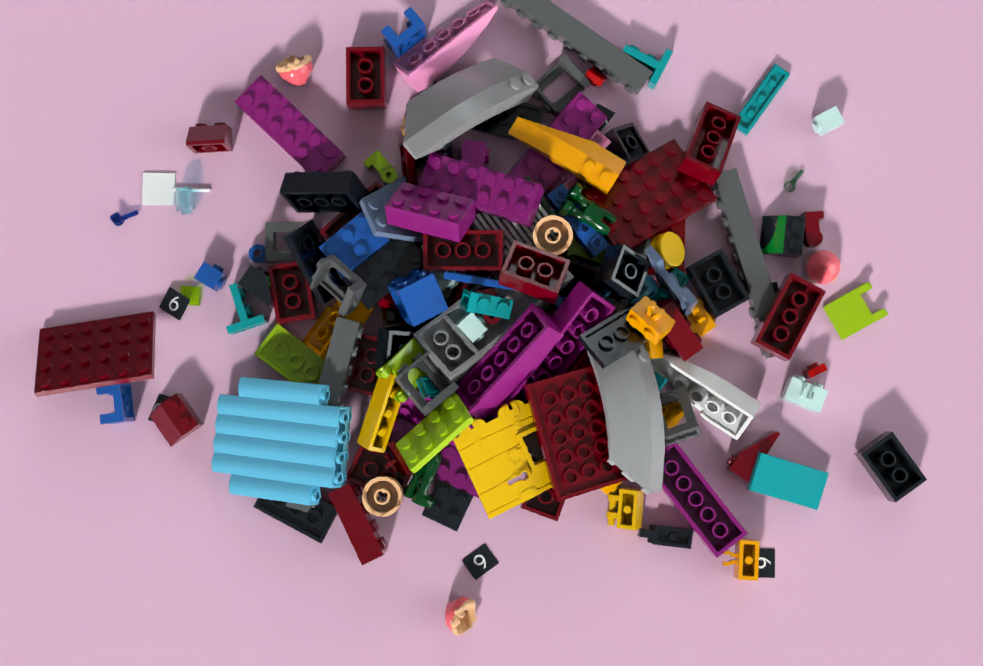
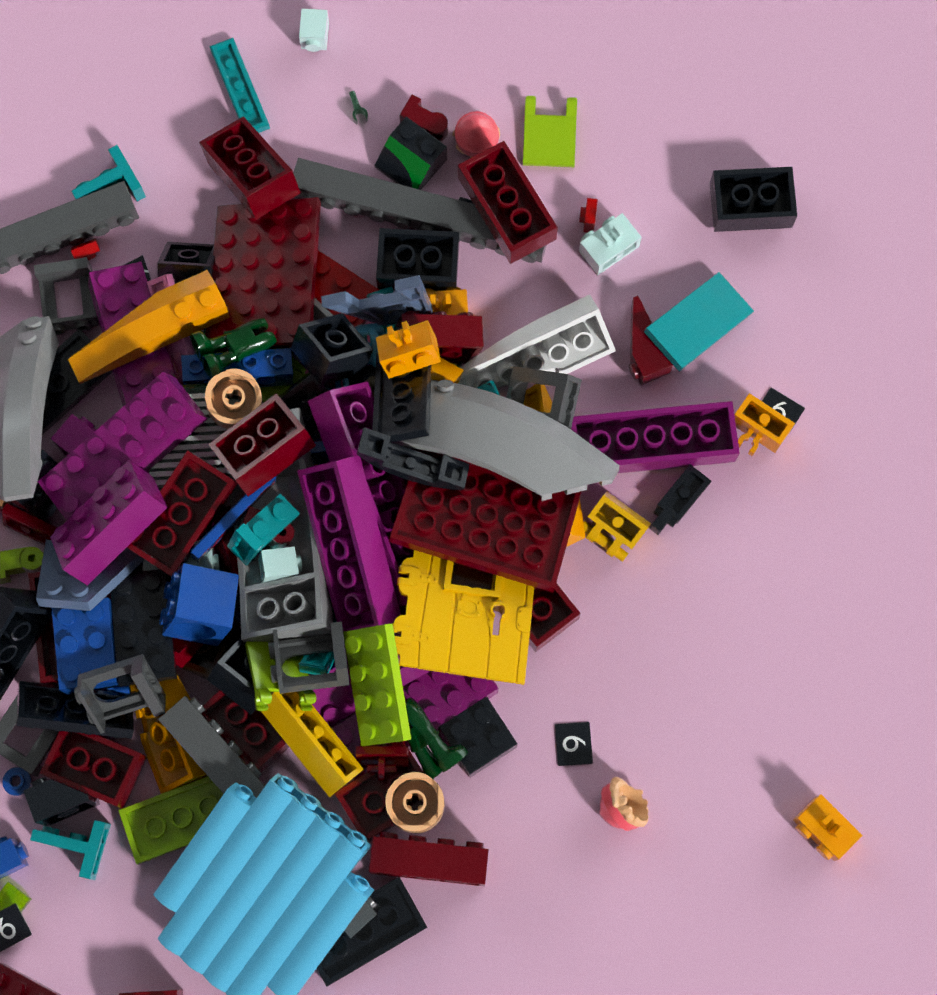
camera: 55 degrees left, 10 degrees down
(579, 368) = (411, 464): none -> black slope
(670, 248) = (339, 280): yellow head -> none

